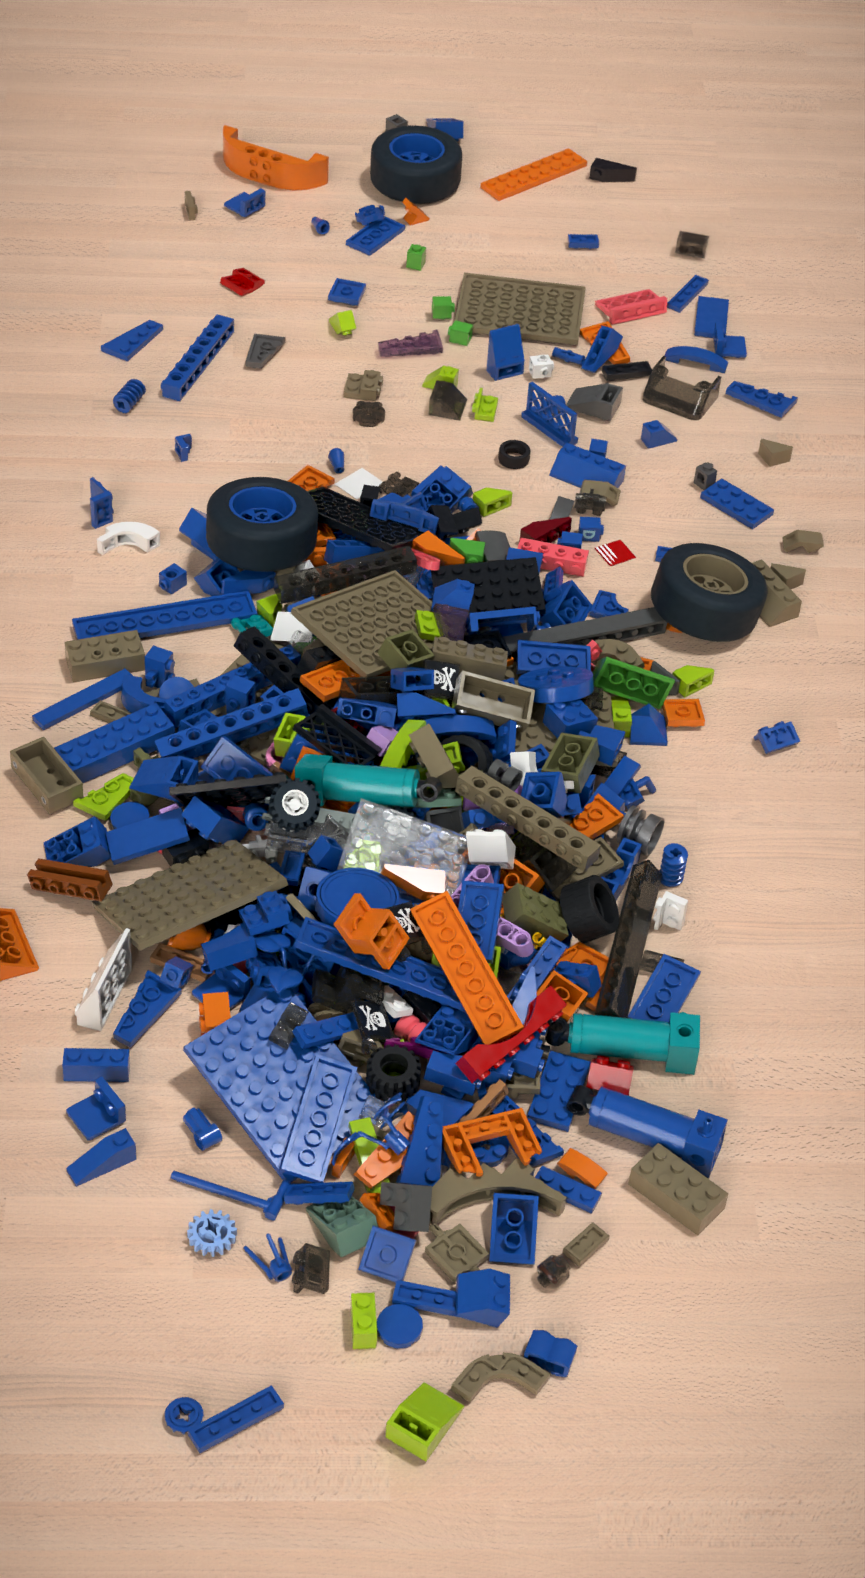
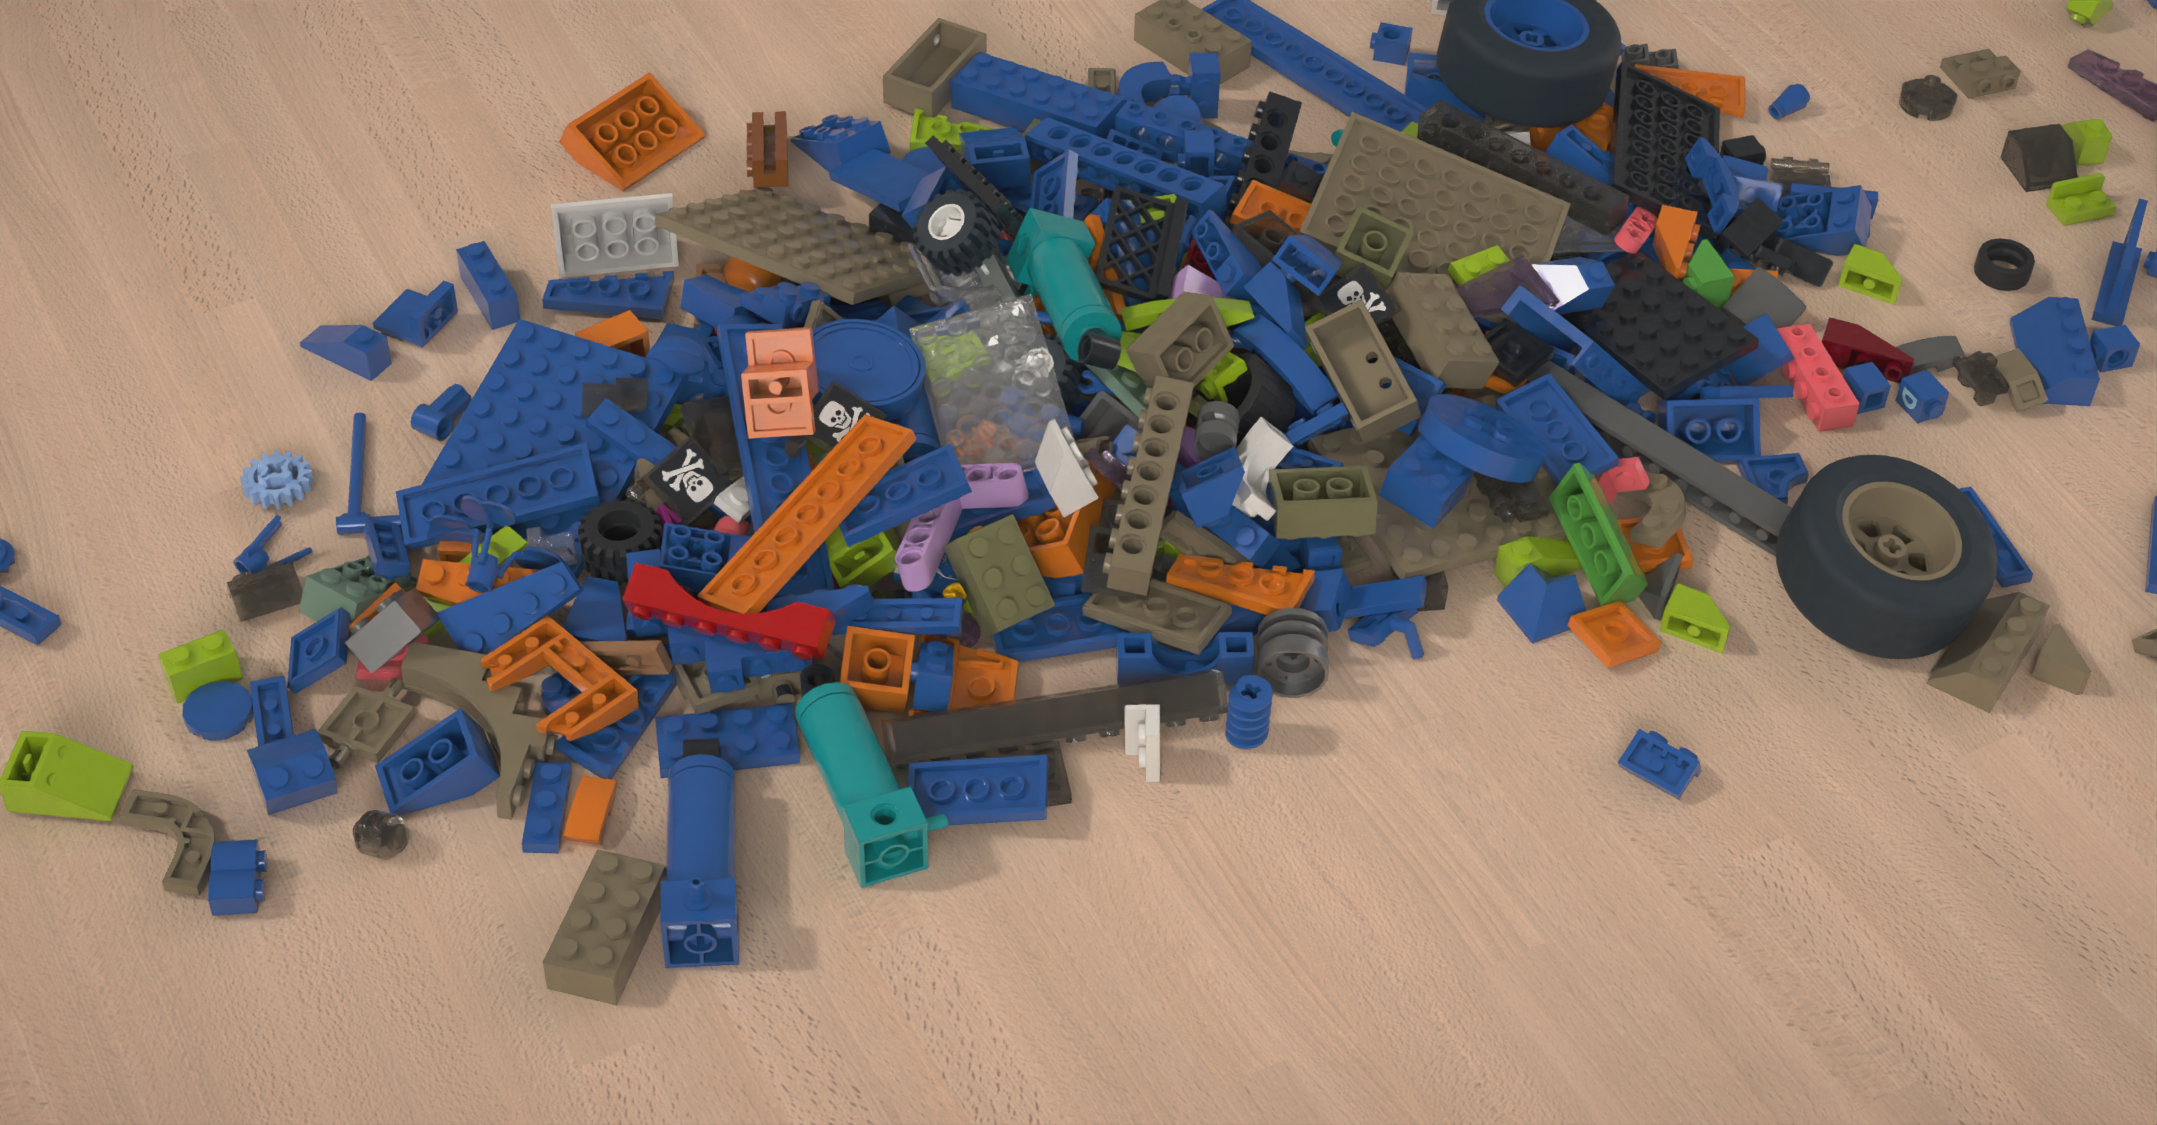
camera: 65 degrees right, 0 degrees up
(80, 700) = (1094, 52): blue tile -> none
(176, 972) = (669, 290): blue brick -> none
(354, 483) = (1778, 141): white sticker -> none
(417, 881) = (939, 416): slope -> none
(466, 503) = (1833, 250): blue wheel -> none
(585, 1244) = (452, 857): dark tan plate -> none
(589, 908) = (1103, 645): black tyre -> none
(609, 742) = (1410, 535): blue torso -> none
(610, 1074) = (781, 781): slope -> none
(615, 552) = (1910, 446): red sticker -> none

